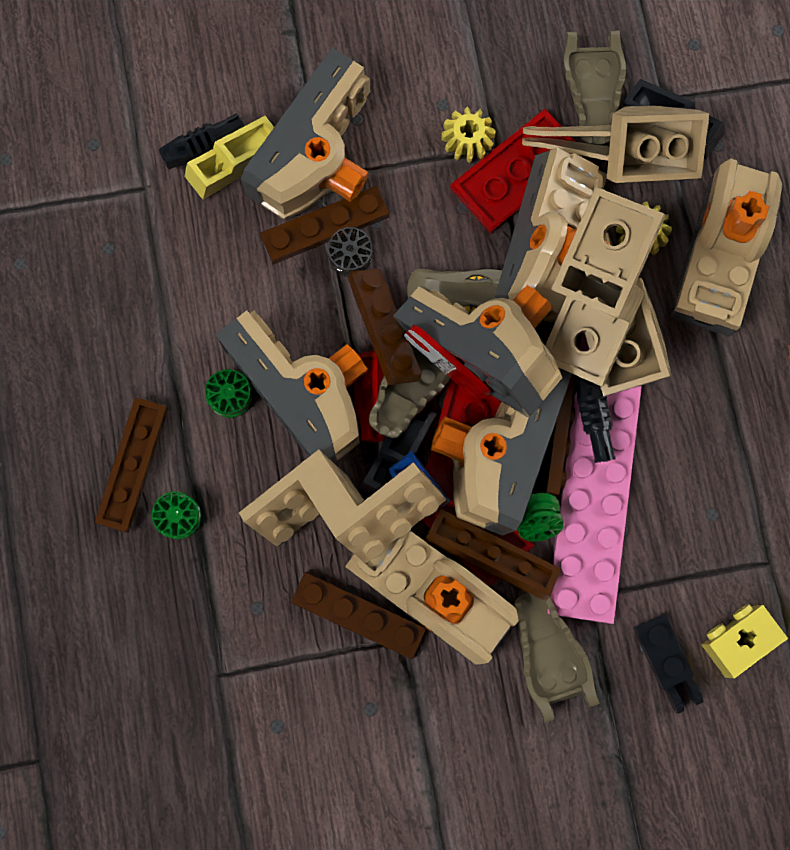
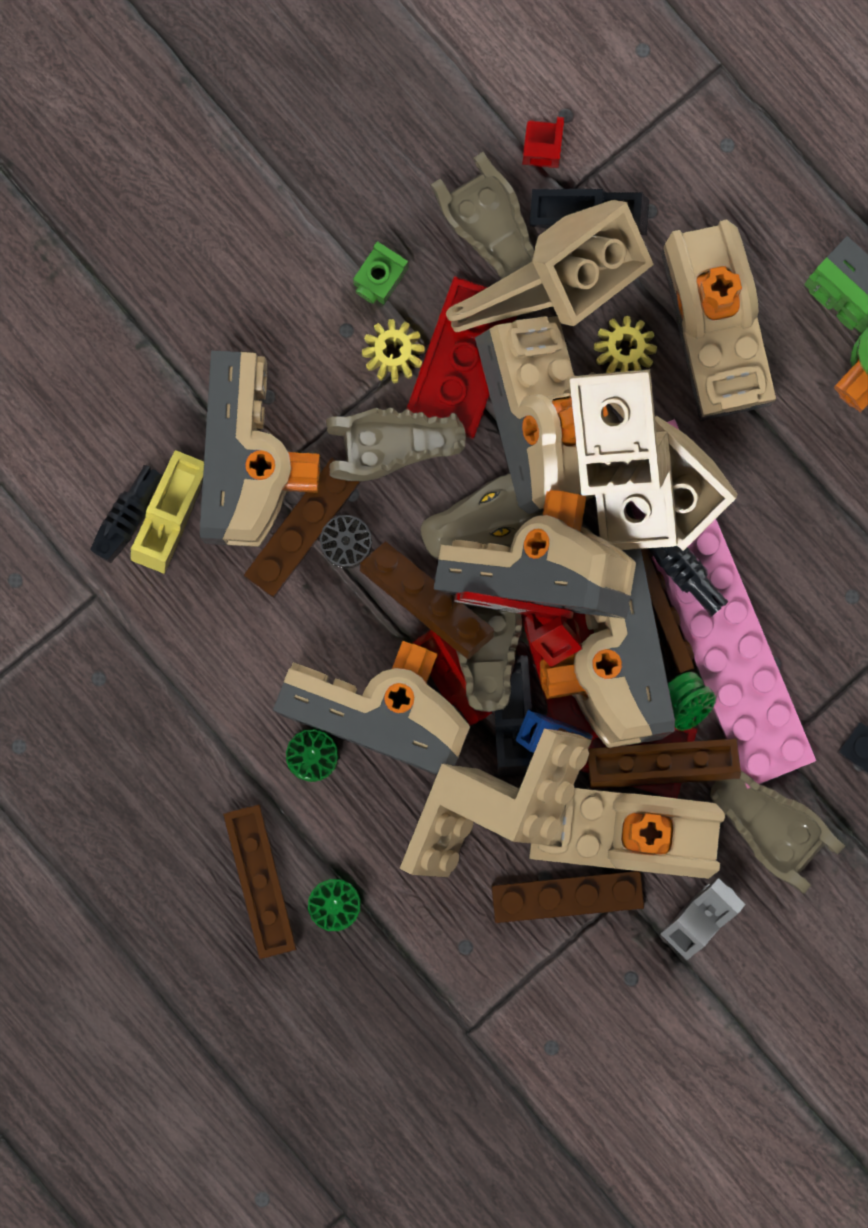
camera: 25 degrees left, 5 degrees up
(426, 195) = (389, 440): none -> dark tan animal
(453, 694) = (702, 918): none -> light grey brick
(463, 404) = (554, 639): none -> red panel
(491, 85) = (391, 263): none -> bright green brick
(666, 53) = (543, 143): none -> red panel

